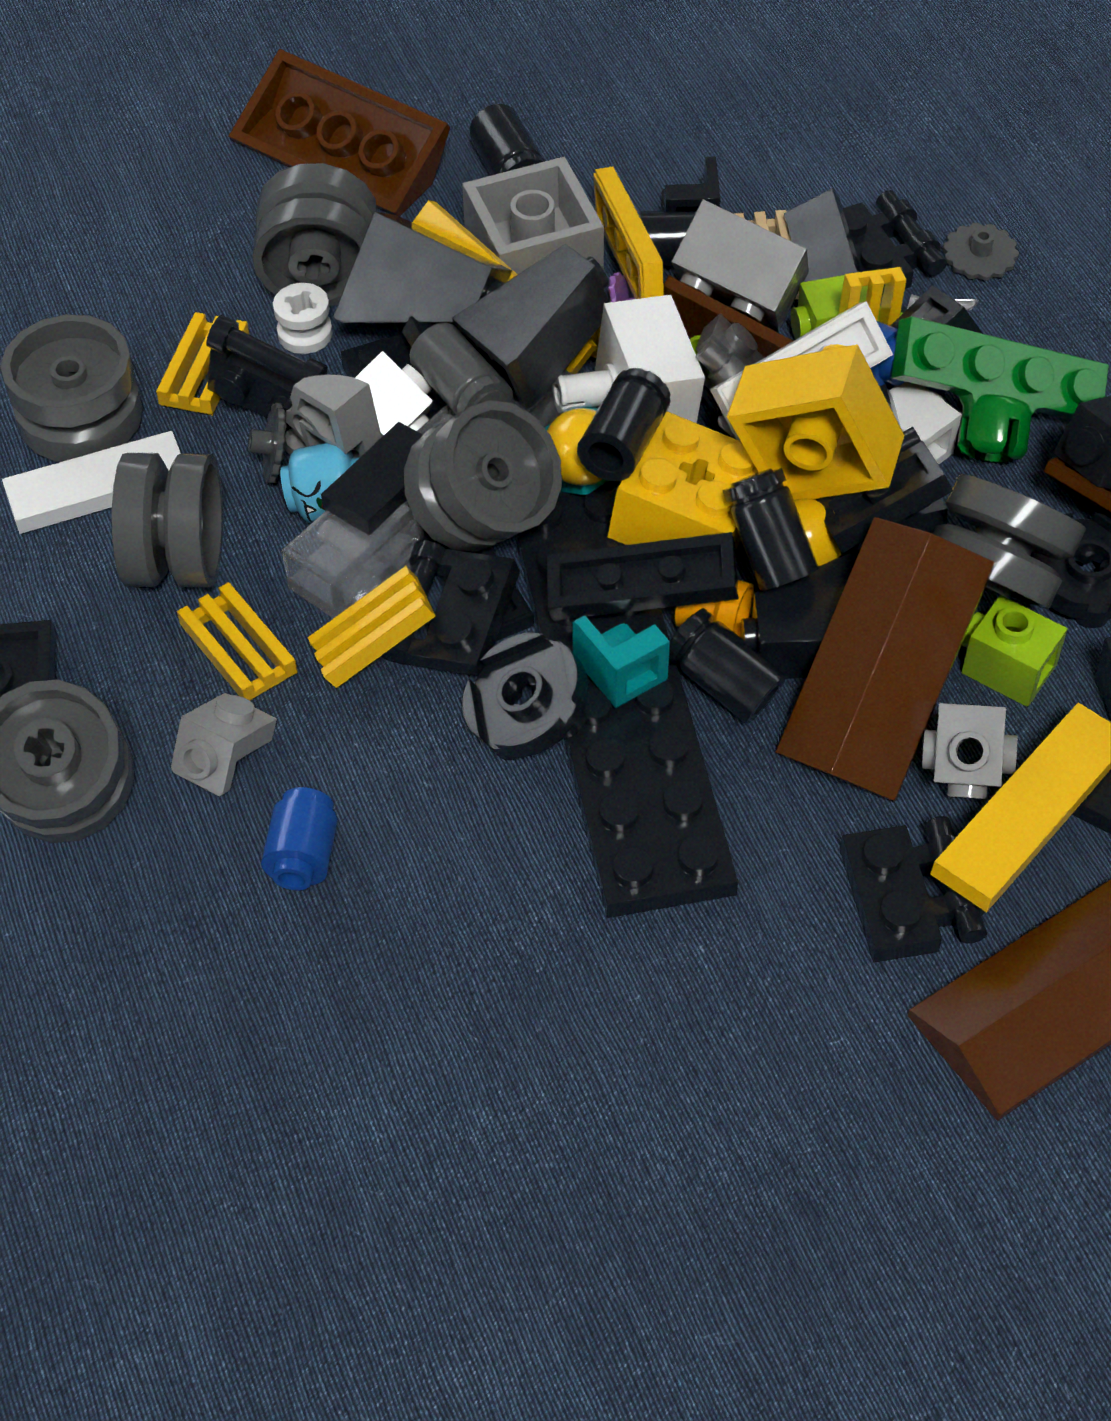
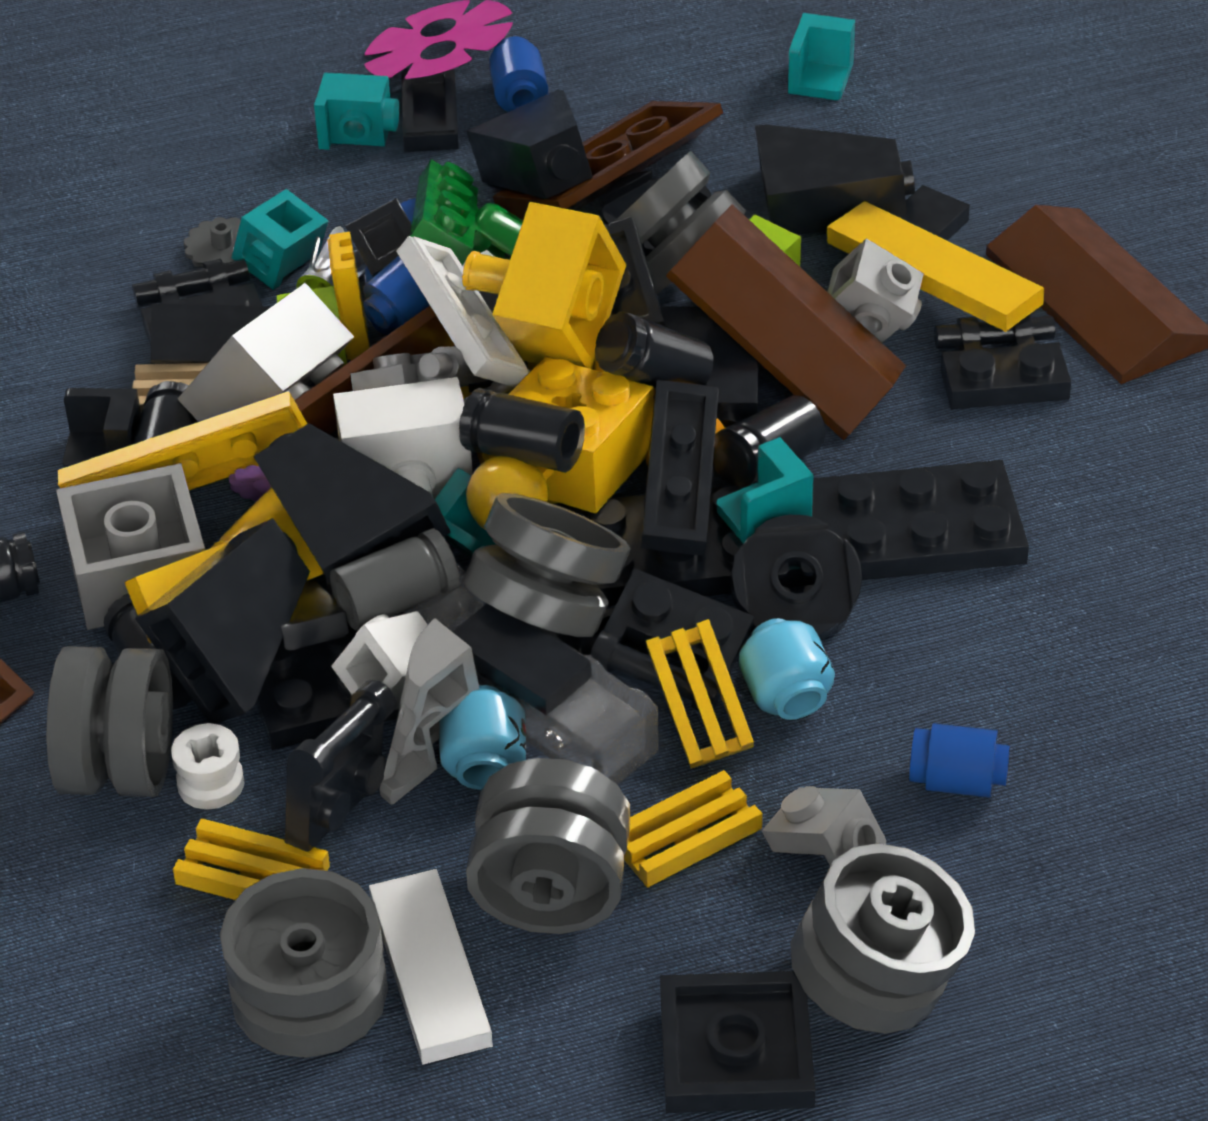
camera: 85 degrees left, 10 degrees down
(270, 442) = (419, 779): dark grey piece -> none
(413, 695) = (786, 668): none -> medium azure head
(980, 272) = (278, 237): none -> teal brick

